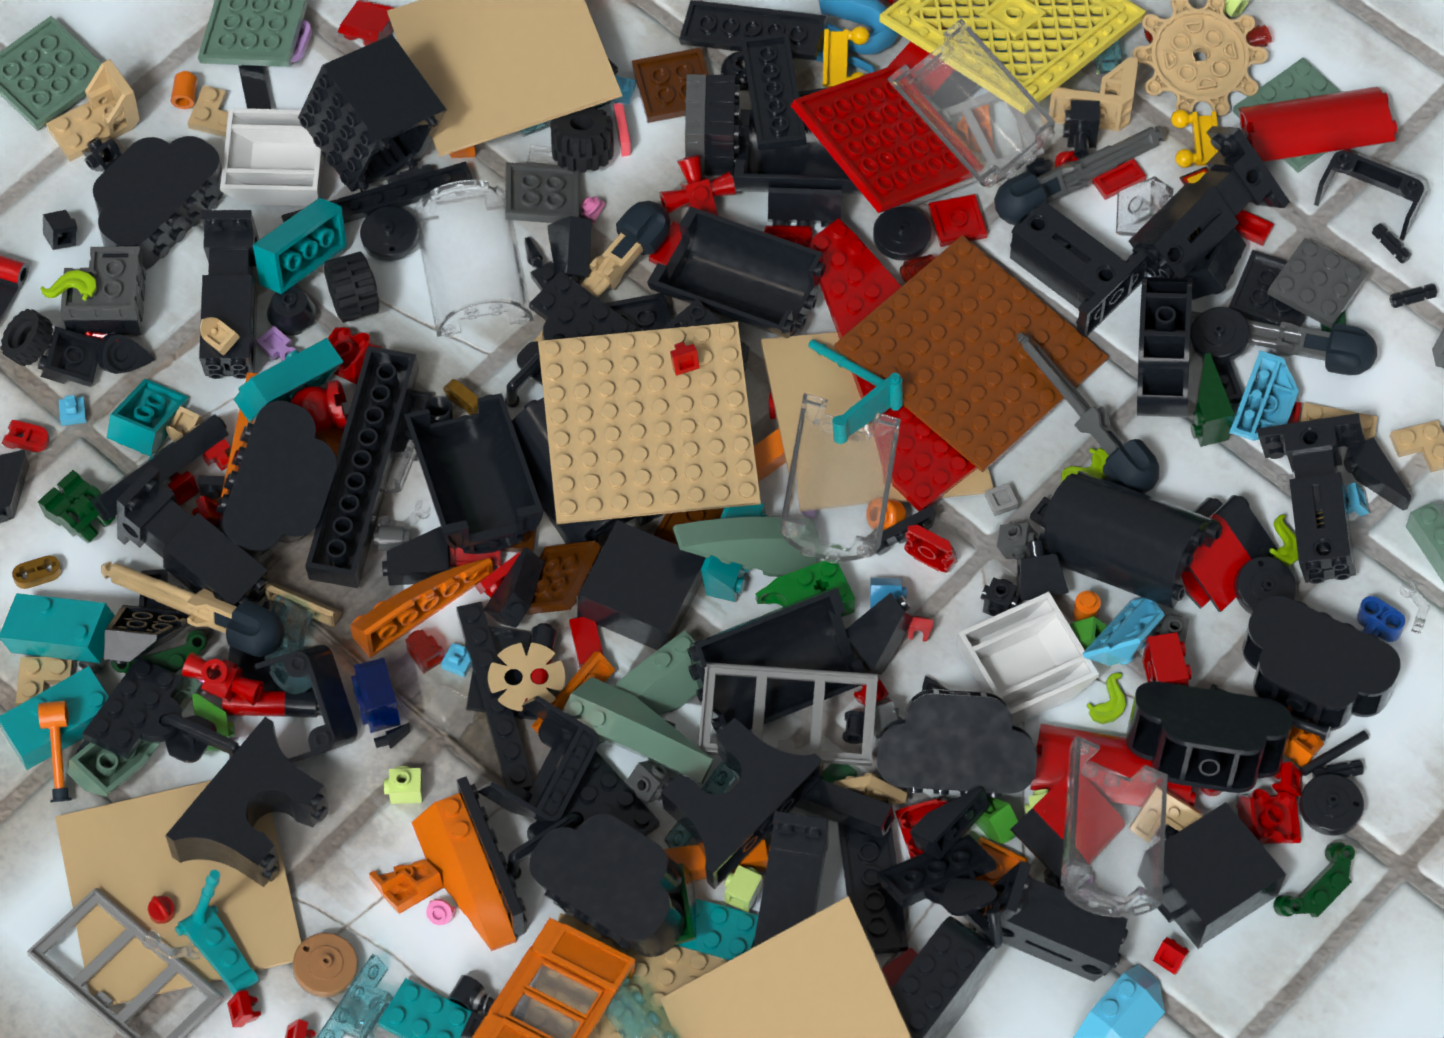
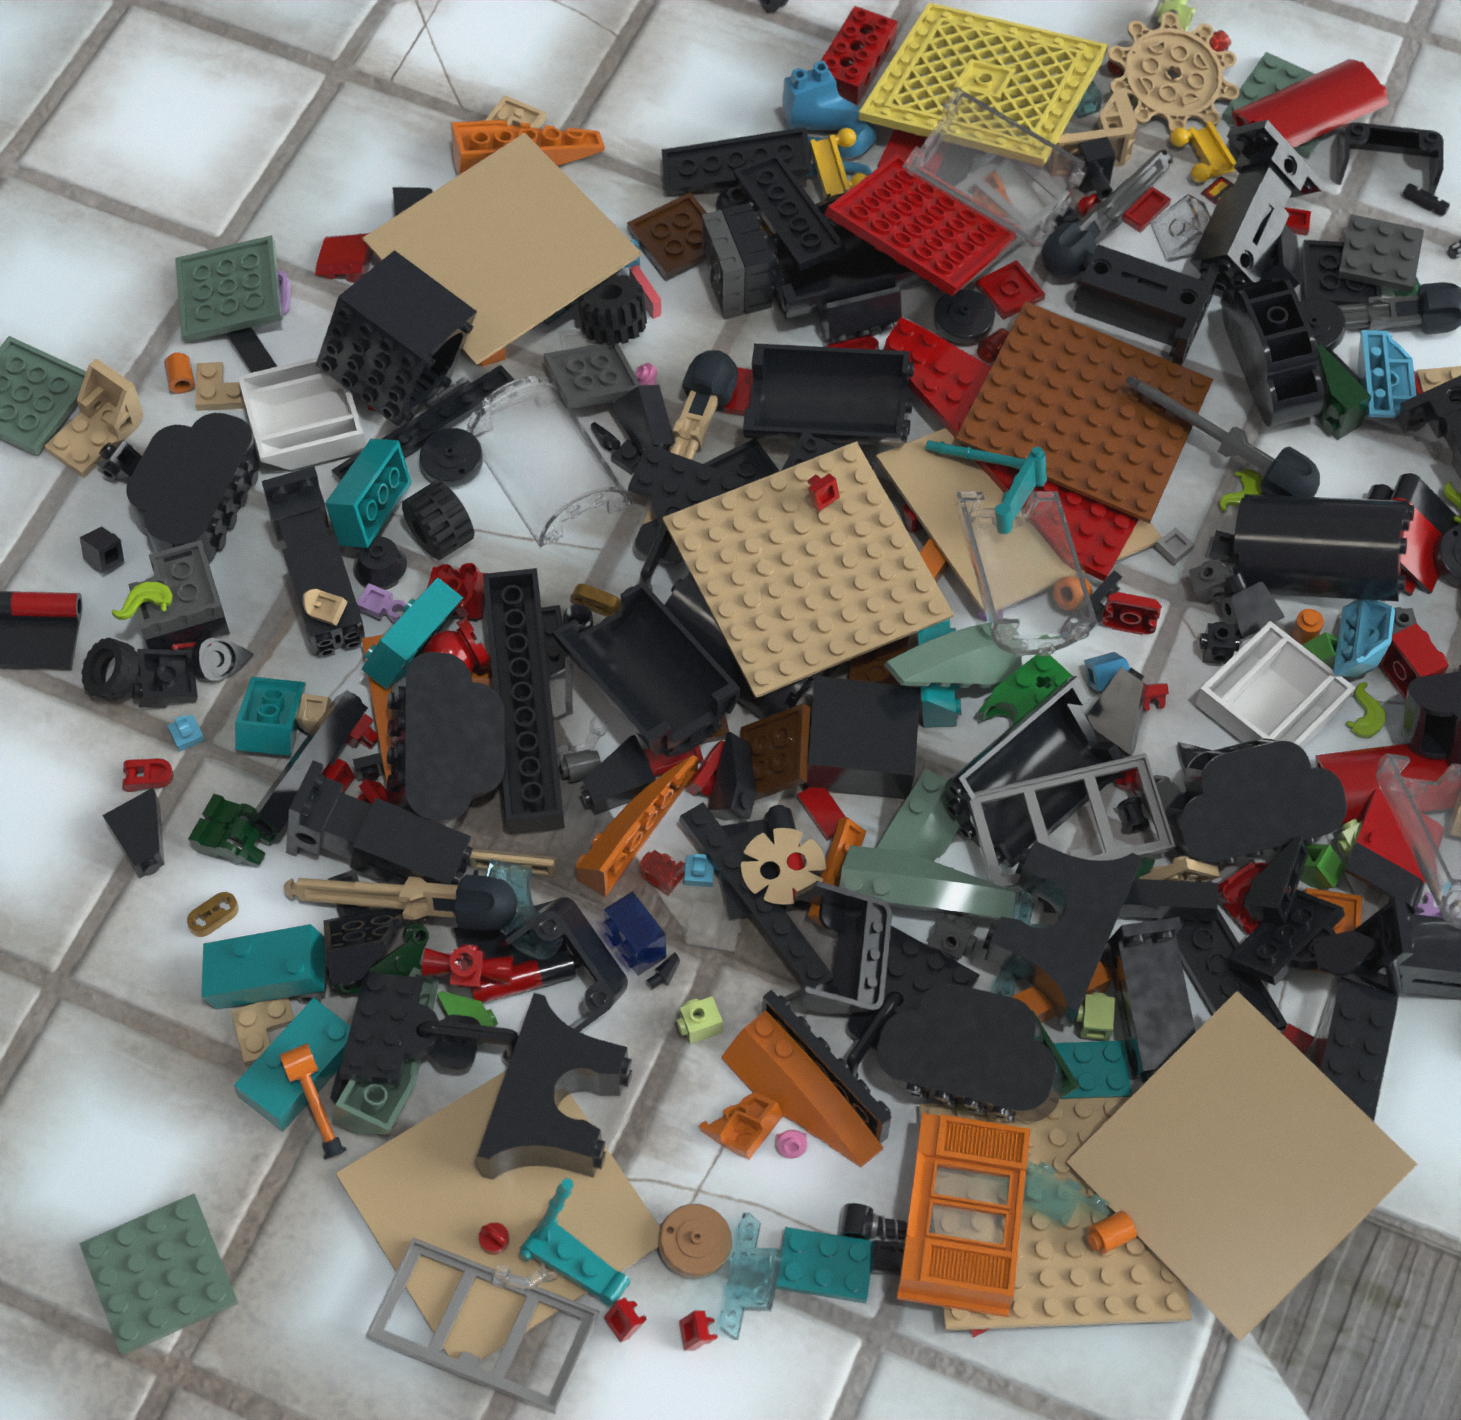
camera: 20 degrees left, 0 degrees up
(697, 190) = (747, 328): red brick -> none

